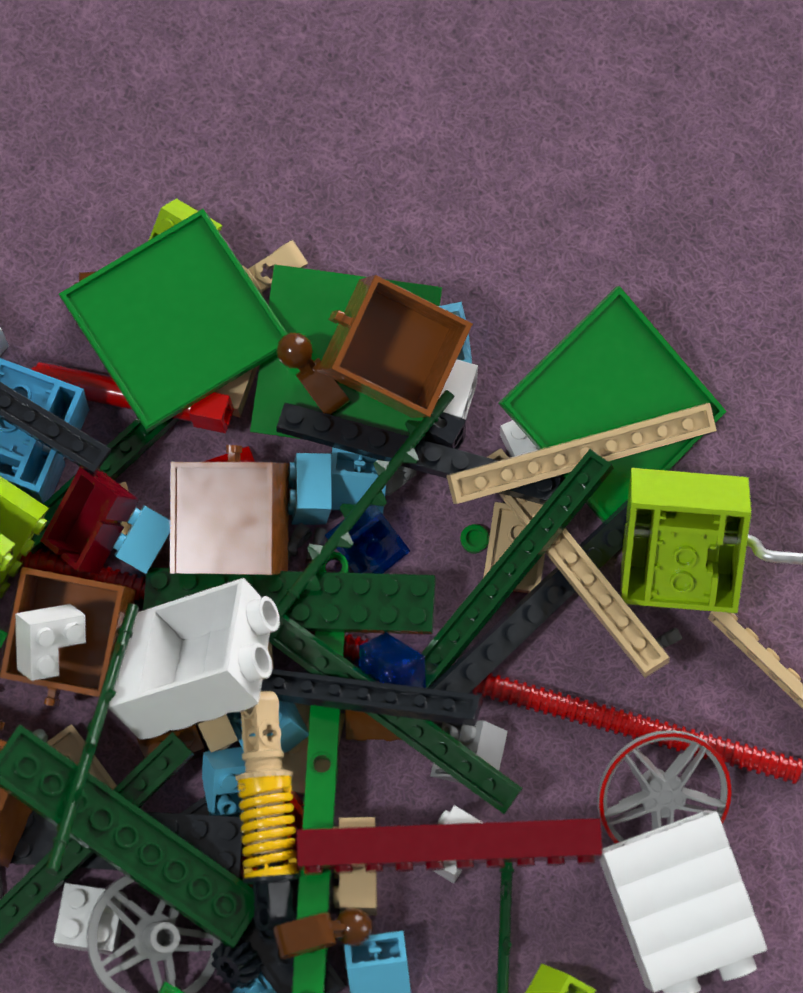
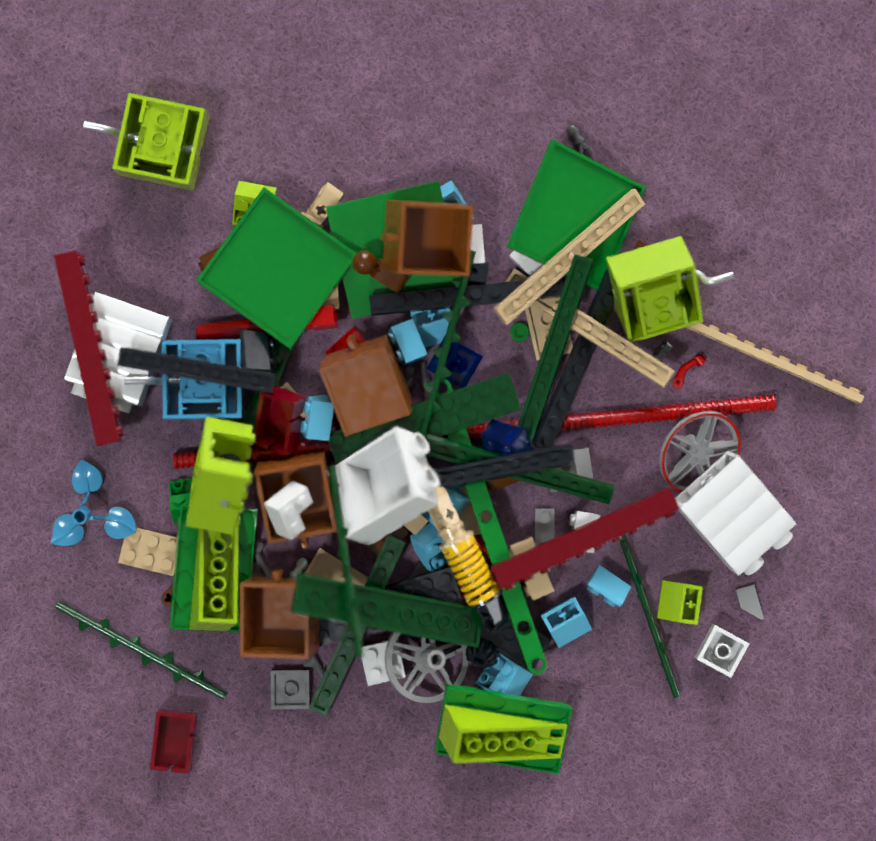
camera: 25 degrees left, 15 degrees up
(92, 107) = (158, 141): none -> lime piece
(102, 416) = (258, 351): none -> black slope
(319, 932) = (544, 609): reddish brown beam -> none
(404, 809) = (544, 525): none -> light grey plate
(459, 938) = (608, 585): none -> medium azure slope
(657, 317) = (579, 141): none -> dark grey piece
(674, 688) = (678, 381): none -> red piece

